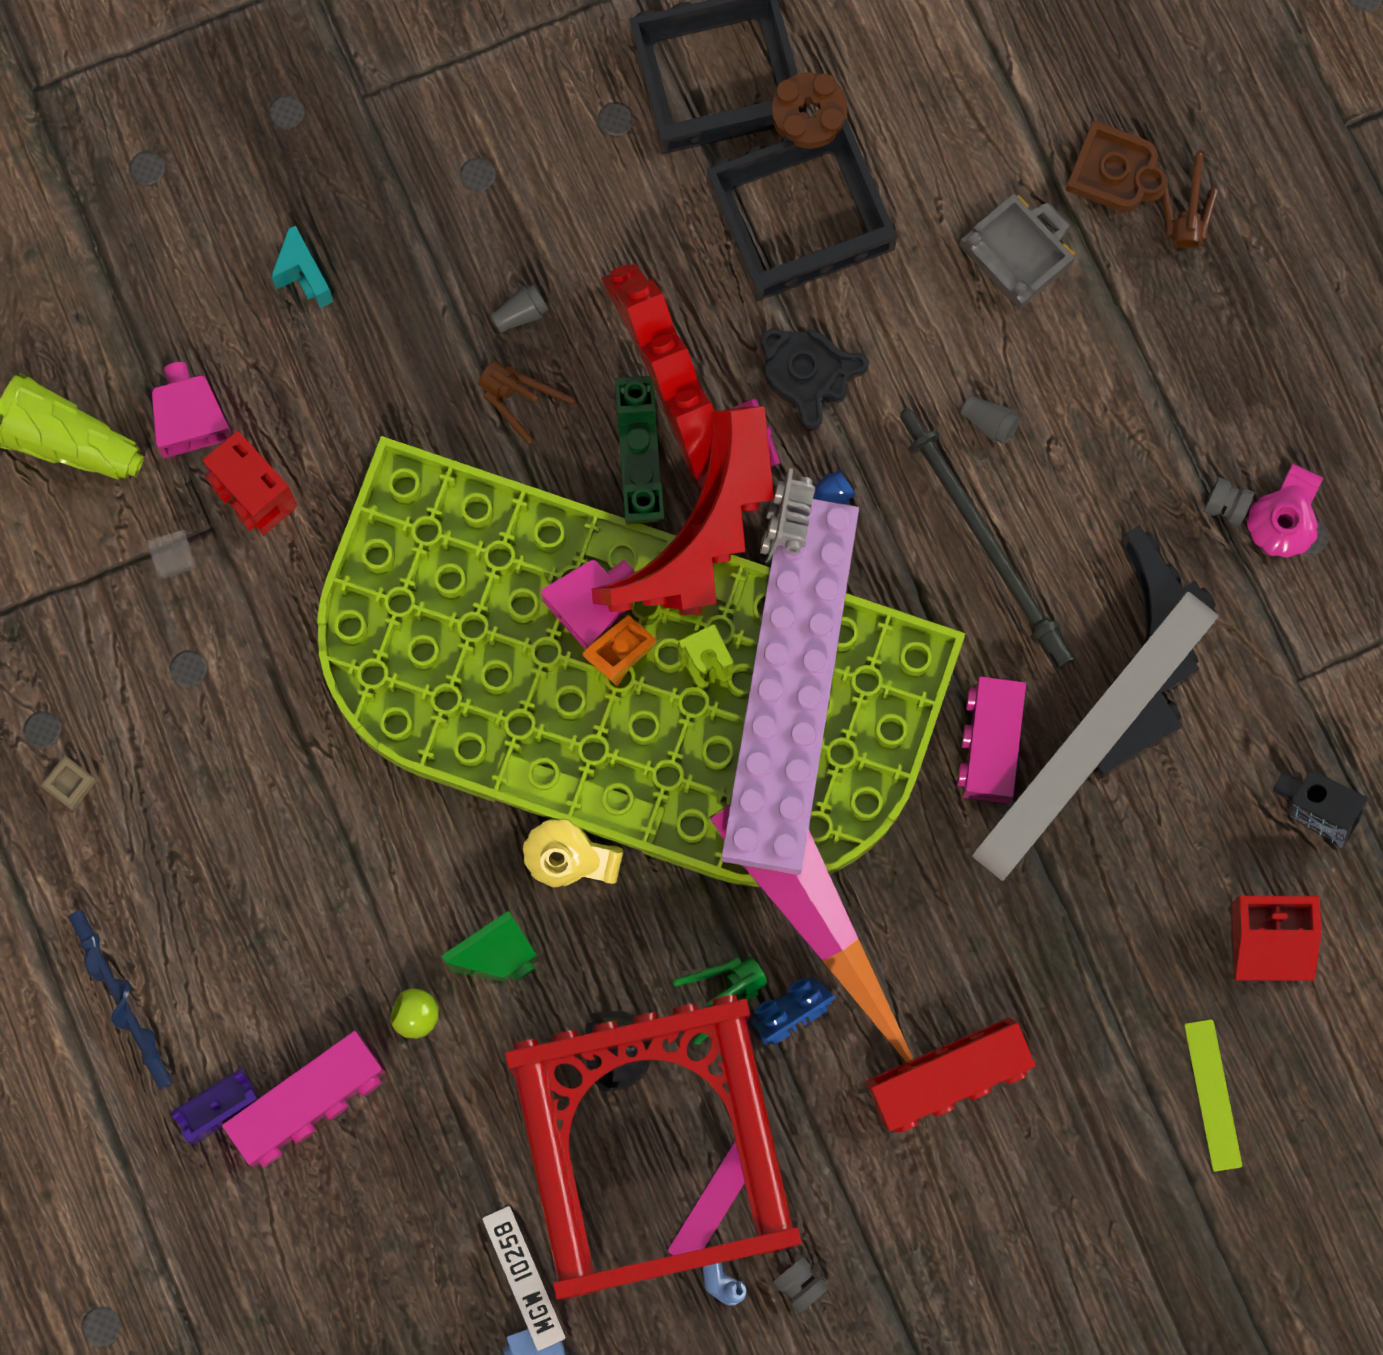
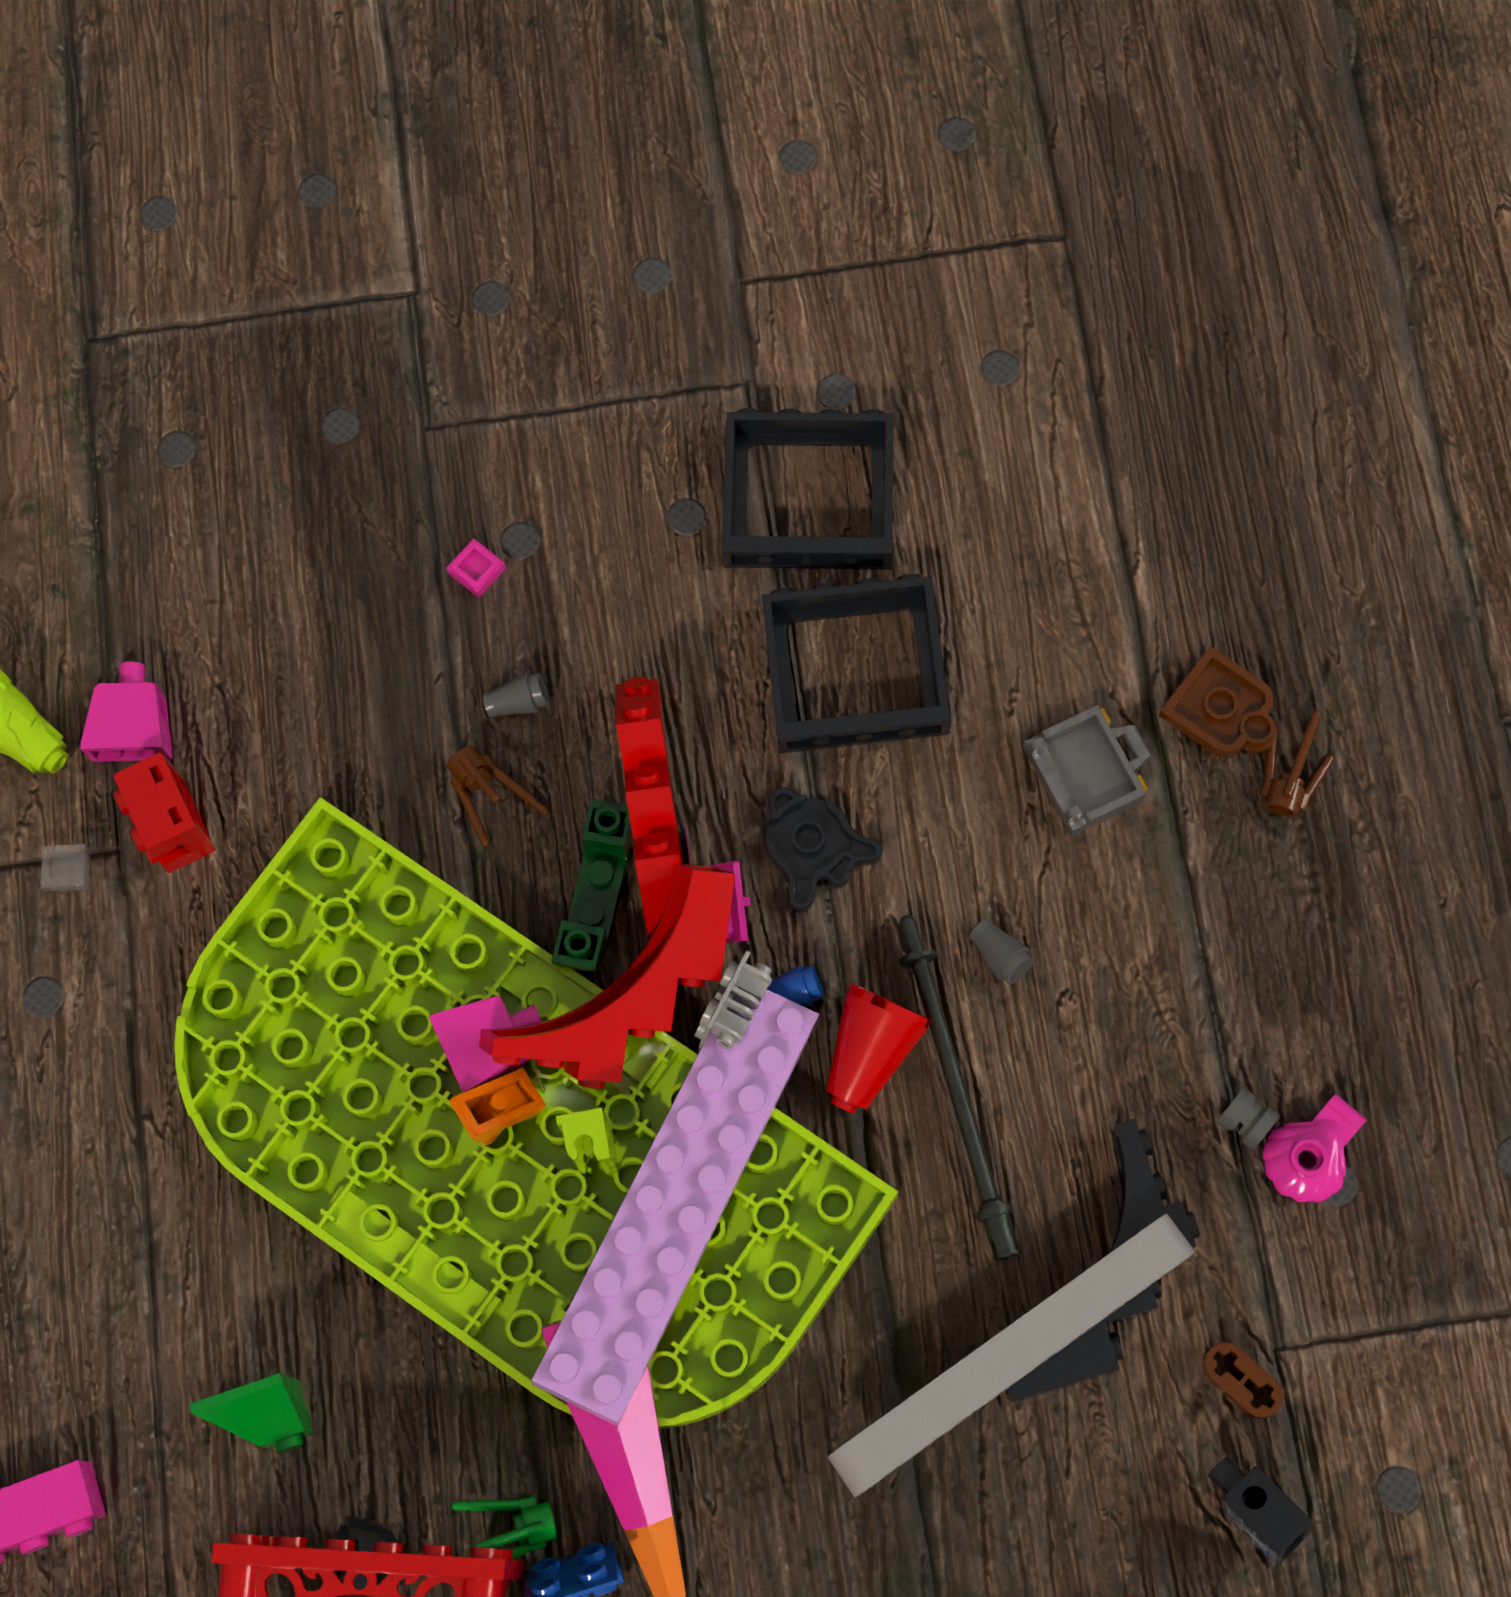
camera: 25 degrees right, 5 degrees down
(297, 264) = (295, 588): teal slope -> none
(414, 1013) = (153, 1458): lime piece -> none
(447, 207) = (476, 568): none -> dark pink tile
(563, 853) = (378, 1321): light yellow animal -> none
(821, 92) = (896, 533): reddish brown plate -> none
(908, 522) = (870, 1046): none -> red cone
(992, 739) = (896, 1323): dark pink brick -> none
(1274, 718) = (1250, 1372): none -> reddish brown beam

